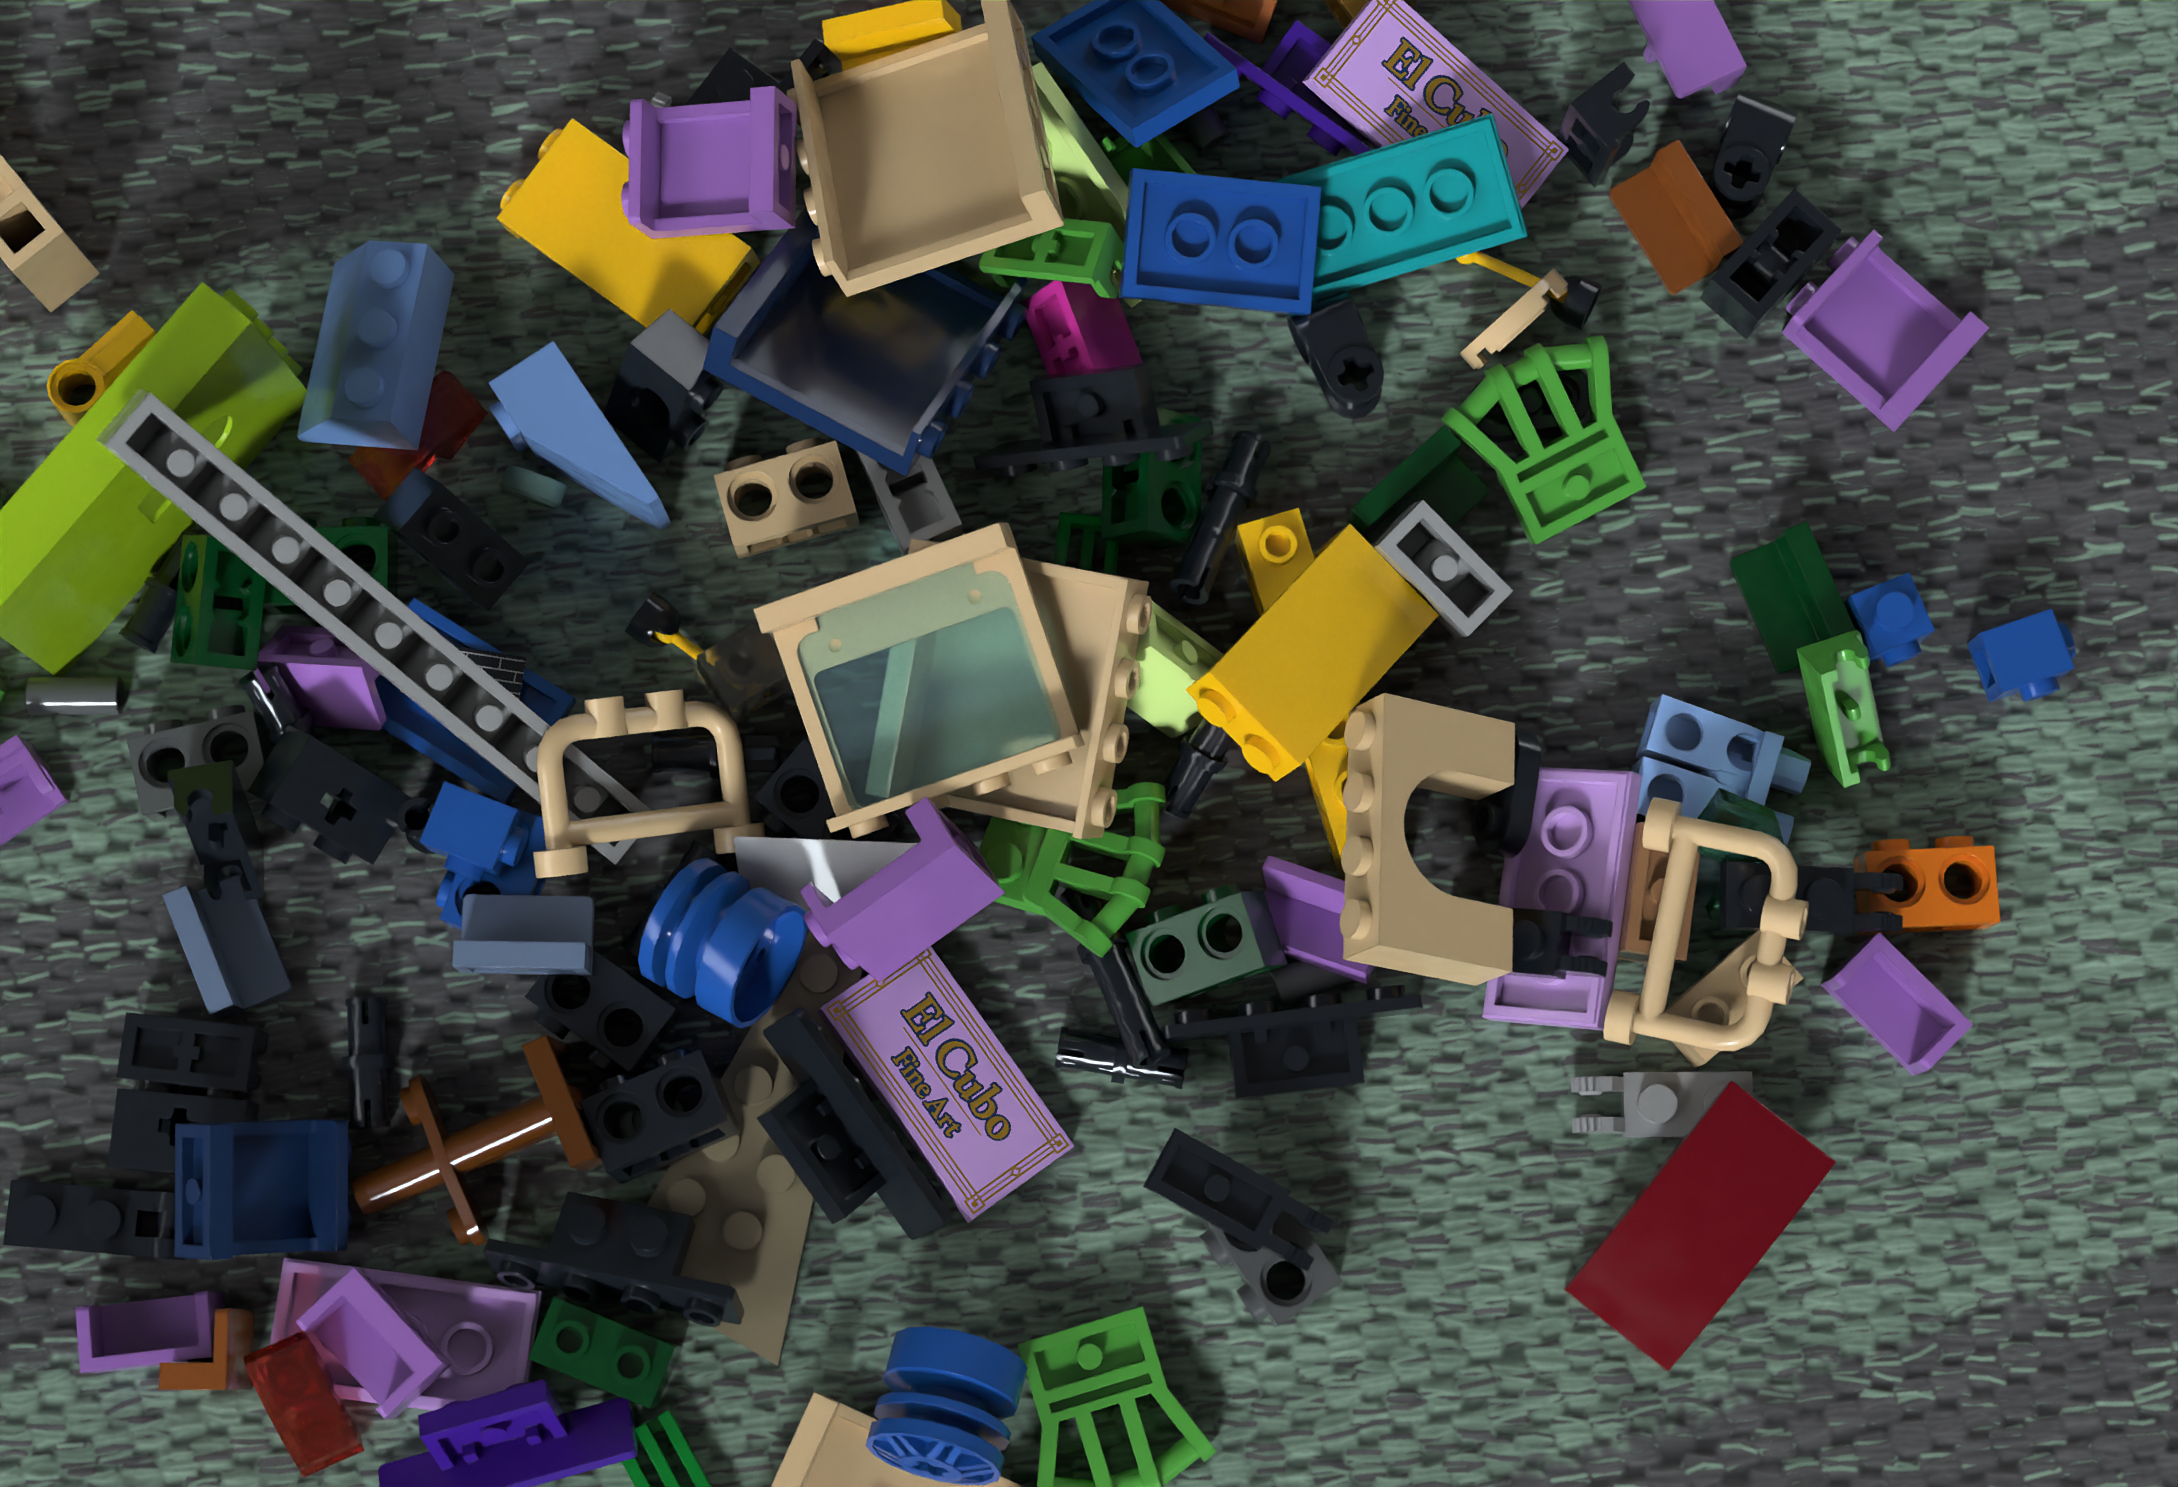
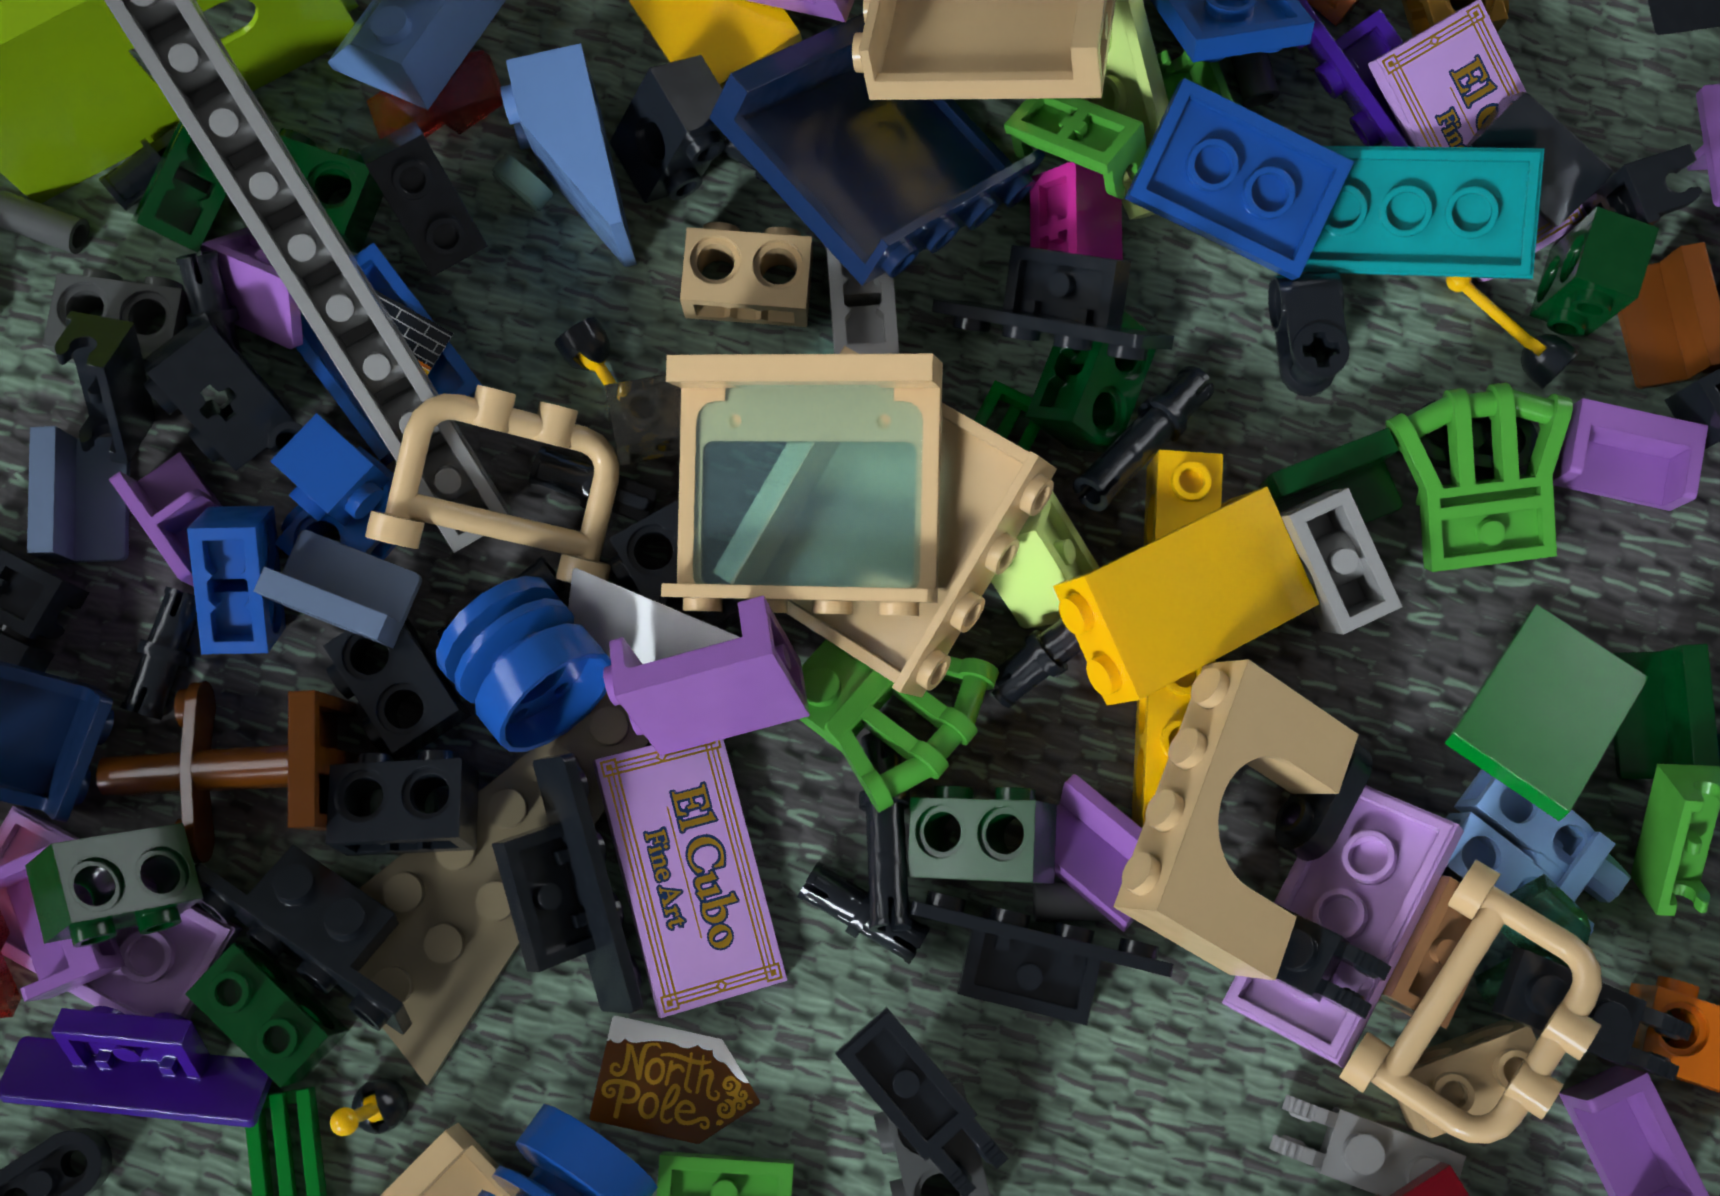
camera: 20 degrees right, 0 degrees up
(341, 929) = (166, 506): none -> medium lavender panel
(420, 964) = (227, 558): none -> blue brick
(425, 1282) = (111, 873): none -> dark green brick
(735, 1403) = (367, 1110): none -> black hinge
(1001, 1280) = (669, 1082): none -> sticker
(1514, 319) = (1490, 352): tan tile -> none
(1523, 118) = (1569, 166): none -> black slope
(1583, 209) = (1593, 272): none -> dark green brick
(1679, 366) = (1631, 455): none -> medium lavender panel
(1682, 636) = (1547, 712): none -> green tile

